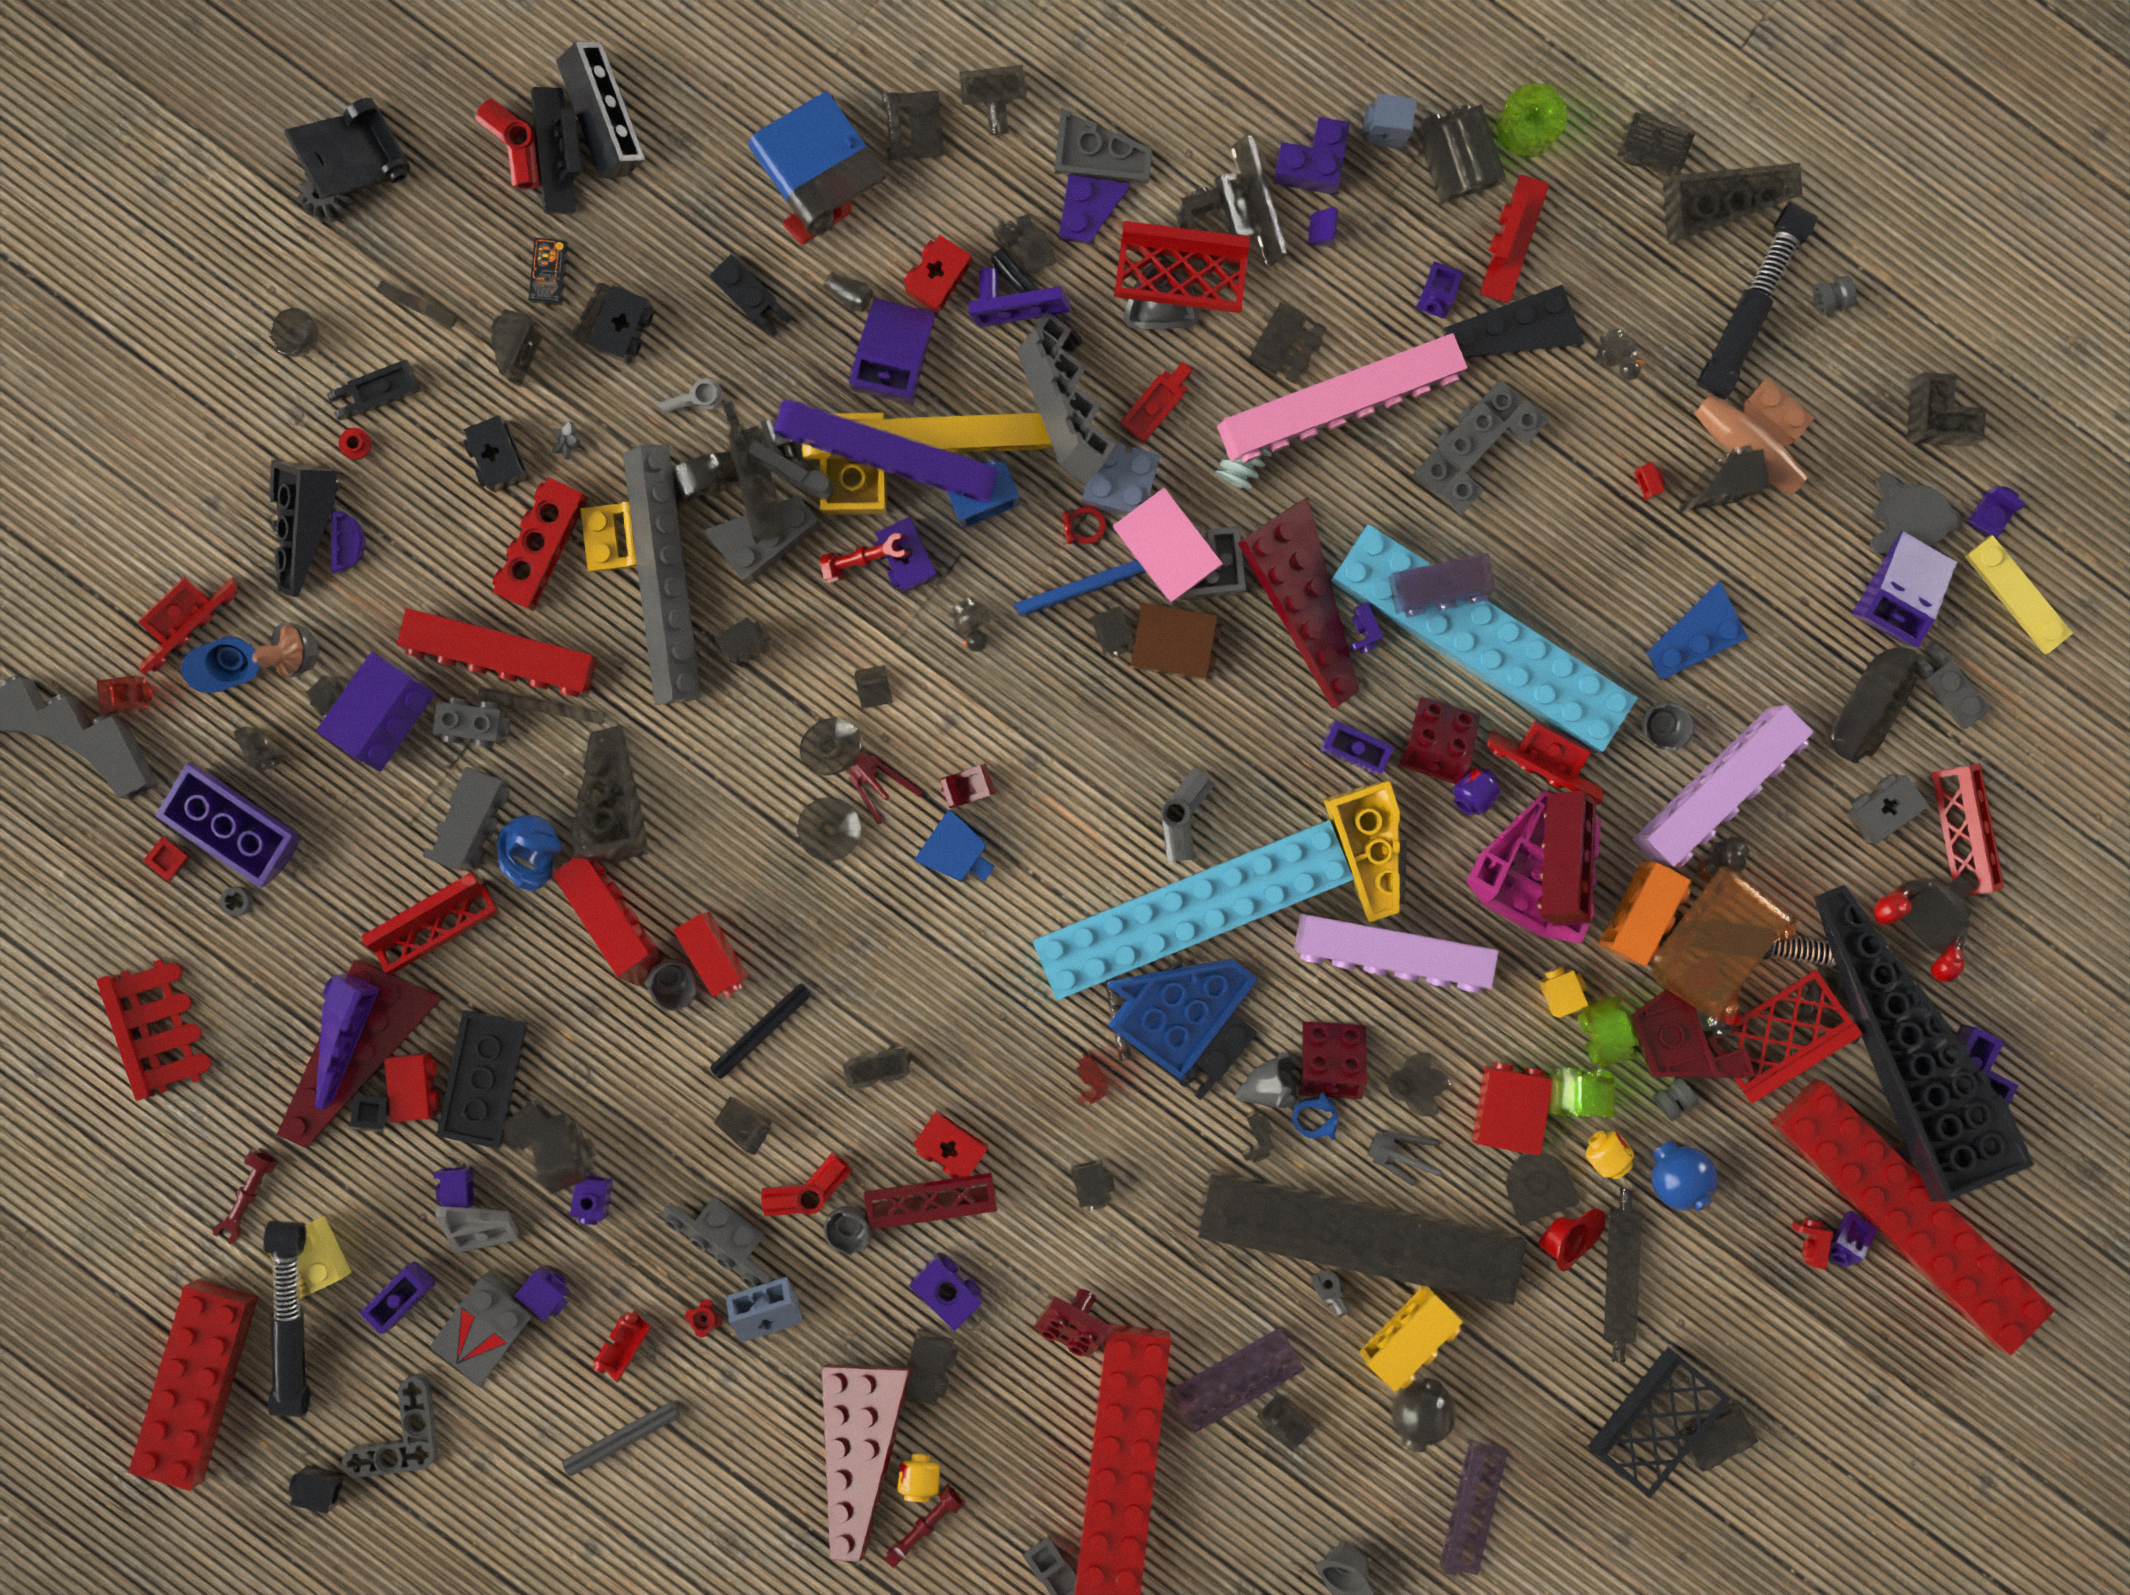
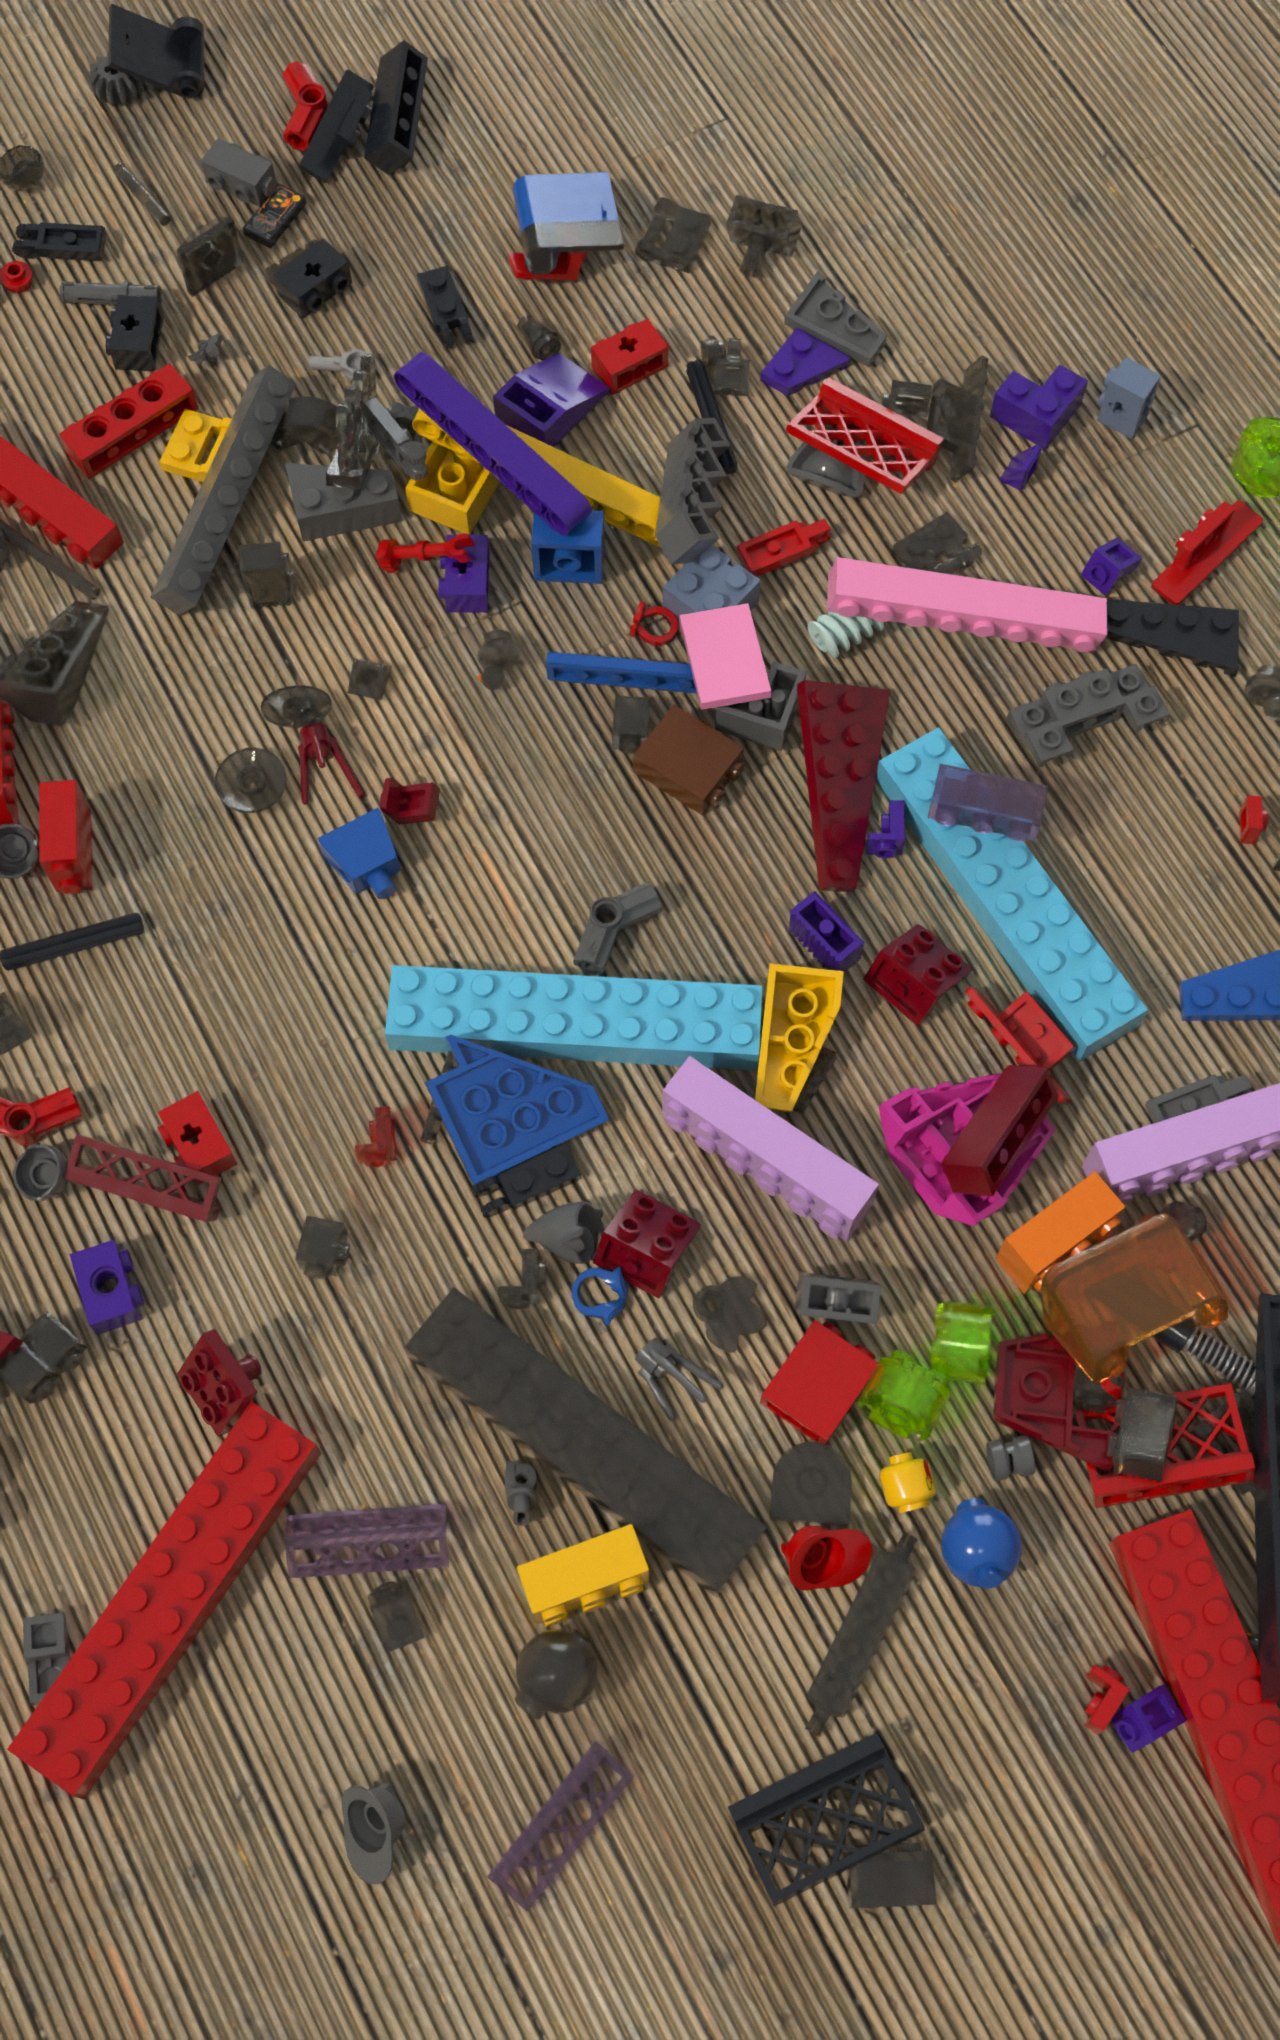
camera: 30 degrees right, 20 degrees down
(450, 423) = (104, 293): none -> dark grey pin
(491, 246) = (239, 172): none -> dark grey brick
(868, 1068) = (173, 1021): clear smoke brick -> none
(1014, 307) = (682, 405): dark purple piece -> none
(1460, 153) = (1186, 458): clear smoke brick -> none
(1476, 791) = (933, 1036): dark purple head -> none
(1498, 1041) = (838, 1298): none -> dark grey brick
(1563, 991) = (934, 1281): yellow brick -> none
(1667, 726) = (1169, 1059): dark grey hair -> none
(1701, 751) = (1196, 1096): none -> dark grey hinge
(1771, 1044) = (1144, 1434): none -> clear smoke brick

